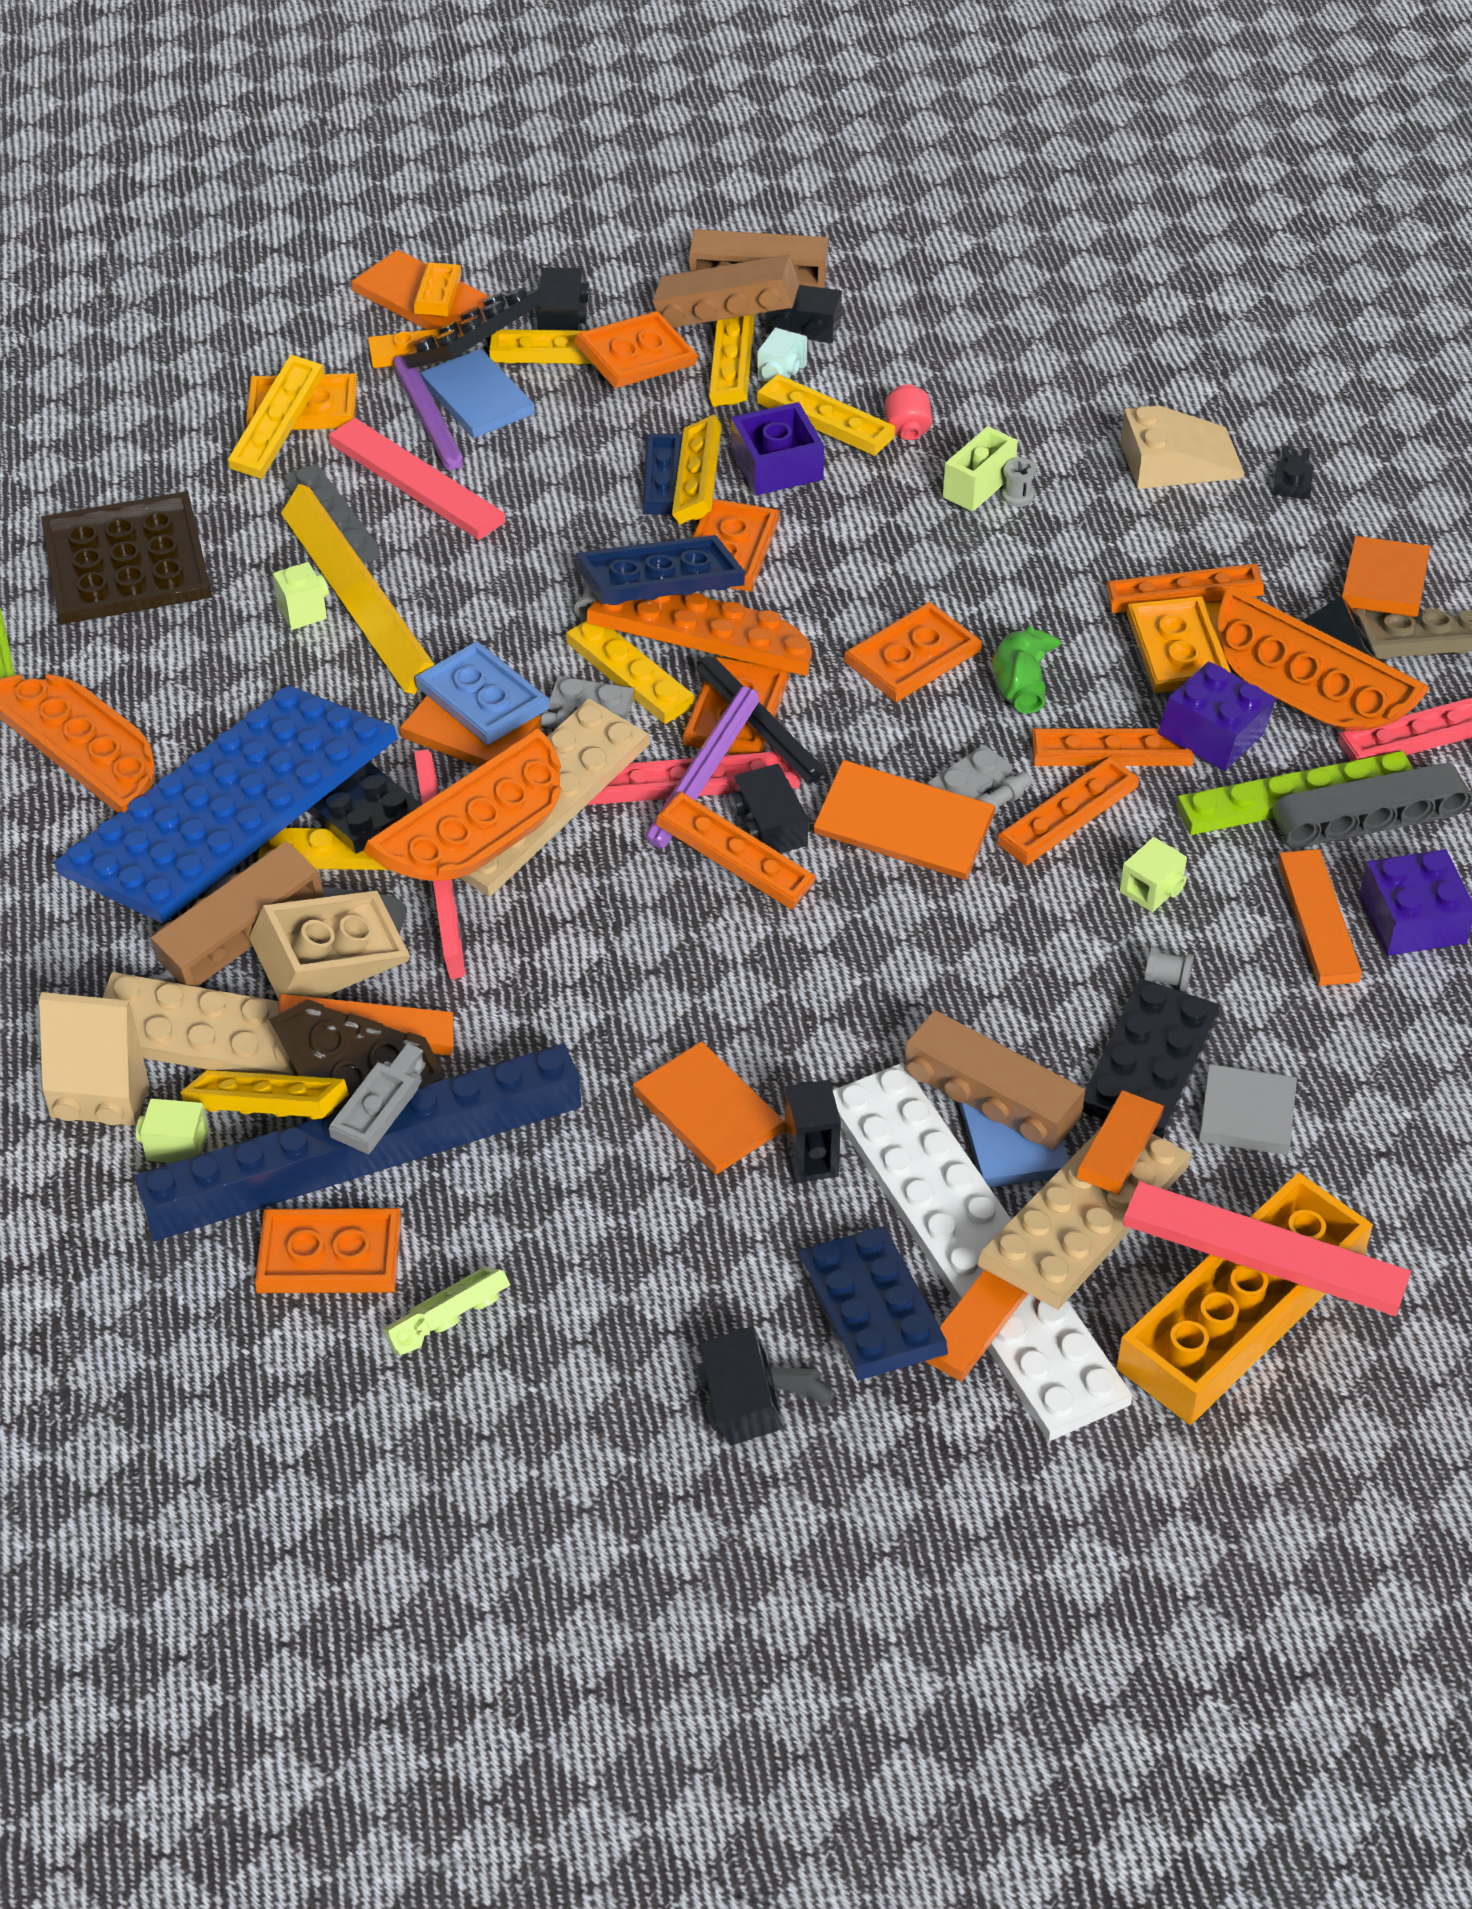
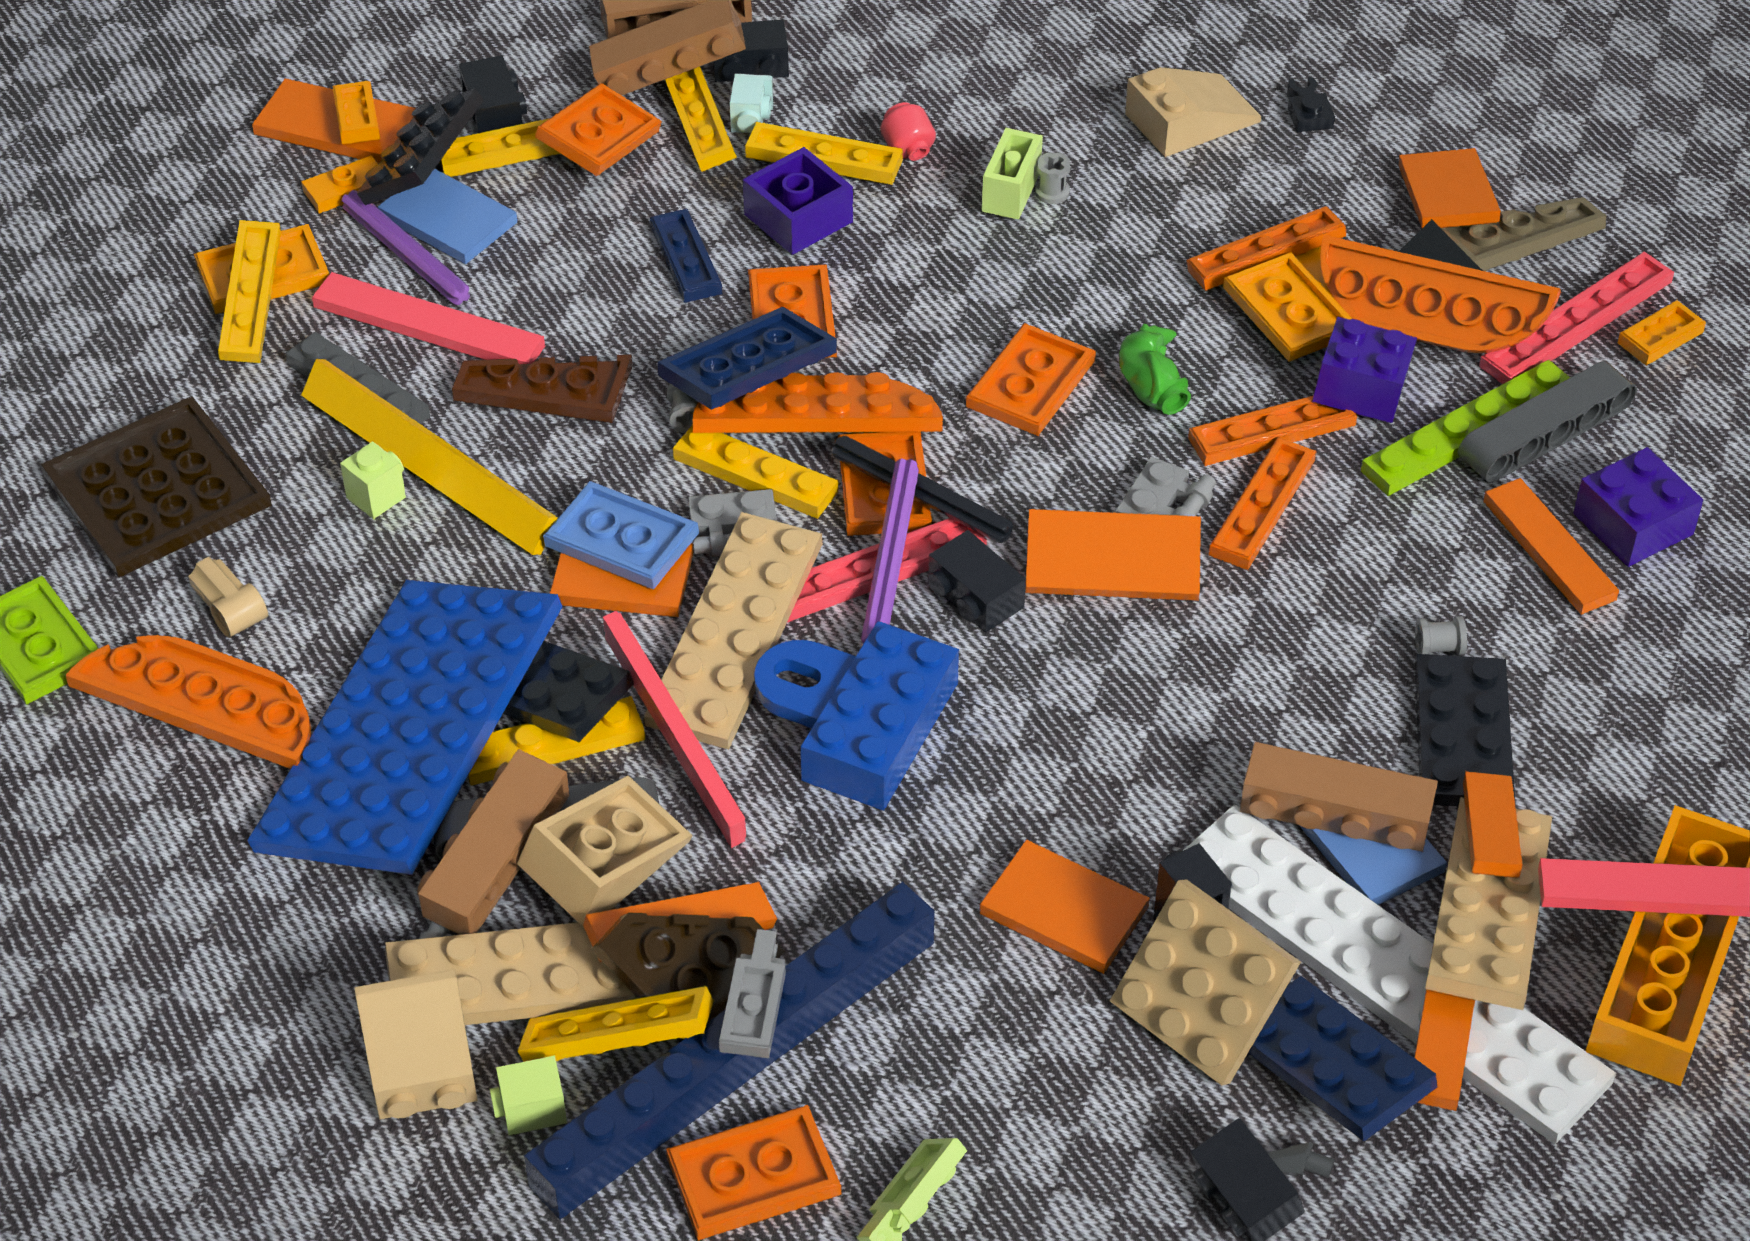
camera: 20 degrees left, 0 degrees up
(135, 664) = (230, 602): none -> tan piece
(475, 815) = (698, 668): orange plate -> none
(487, 554) = (571, 389): none -> reddish brown wing
(615, 894) = (864, 711): none -> blue brick
(697, 470) = (724, 242): yellow plate -> none
(735, 850) = (967, 631): orange tile -> none
(783, 1202) = (1204, 981): none -> tan plate
(1153, 874) = (1381, 546): yellowish green brick -> none
(1248, 1109) = (1579, 756): light grey tile -> none

